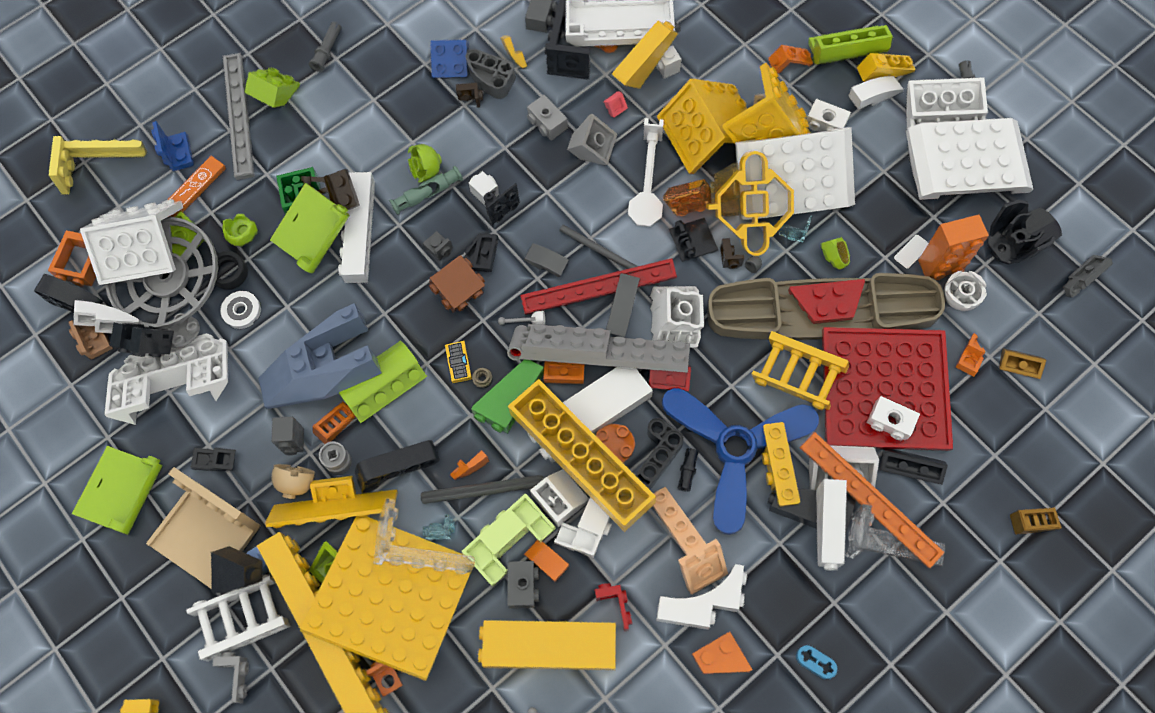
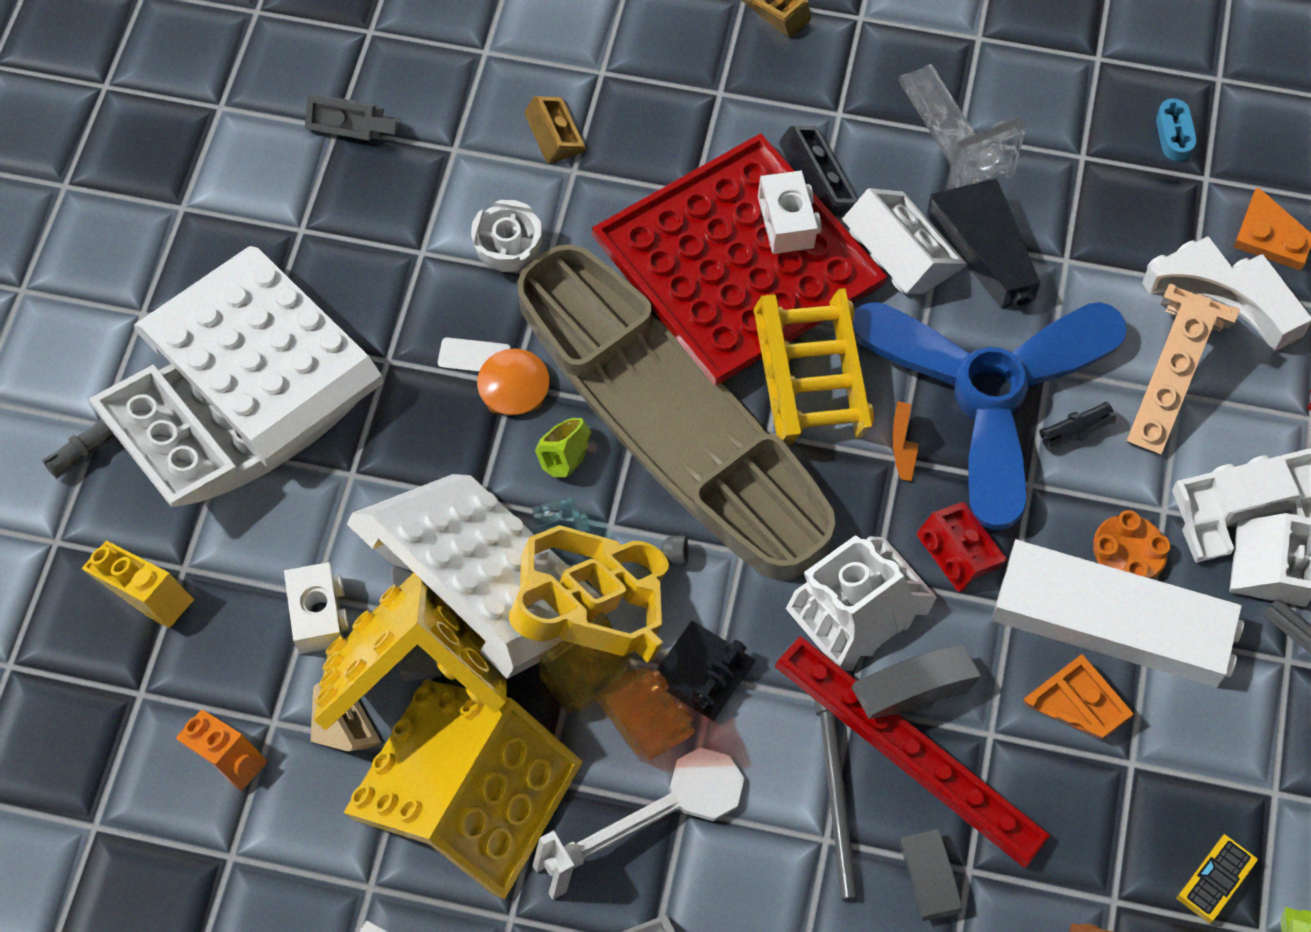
camera: 130 degrees left, 5 degrees down
(482, 372) = (1213, 809): dark tan plate -> none
(494, 404) = (1203, 747): bright green slope -> none
(536, 318) = (1042, 808): hinge -> none
(582, 455) = (1212, 552): yellow brick -> none
(596, 348) = (1025, 665): light grey hinge -> none
(663, 447) = (1156, 466): black beam -> none
(728, 256) = (692, 598): dark brown bracket -> none
(738, 387) = (904, 451): none -> orange slope
(779, 465) = (974, 308): yellow bracket -> none
(829, 300) = (656, 406): red wing -> none
(831, 523) = (1007, 189): white slope -> none
(850, 44) = (128, 664): lime brick -> none
(867, 494) = (928, 175): orange tile -> none
(875, 91) = (205, 568): white slope -> none
(885, 255) = (513, 382): none -> orange dish
(953, 247) = (462, 267): orange brick -> none
(971, 357) = (596, 189): orange slope -> none
(1021, 232) = (348, 212): black piece -> none

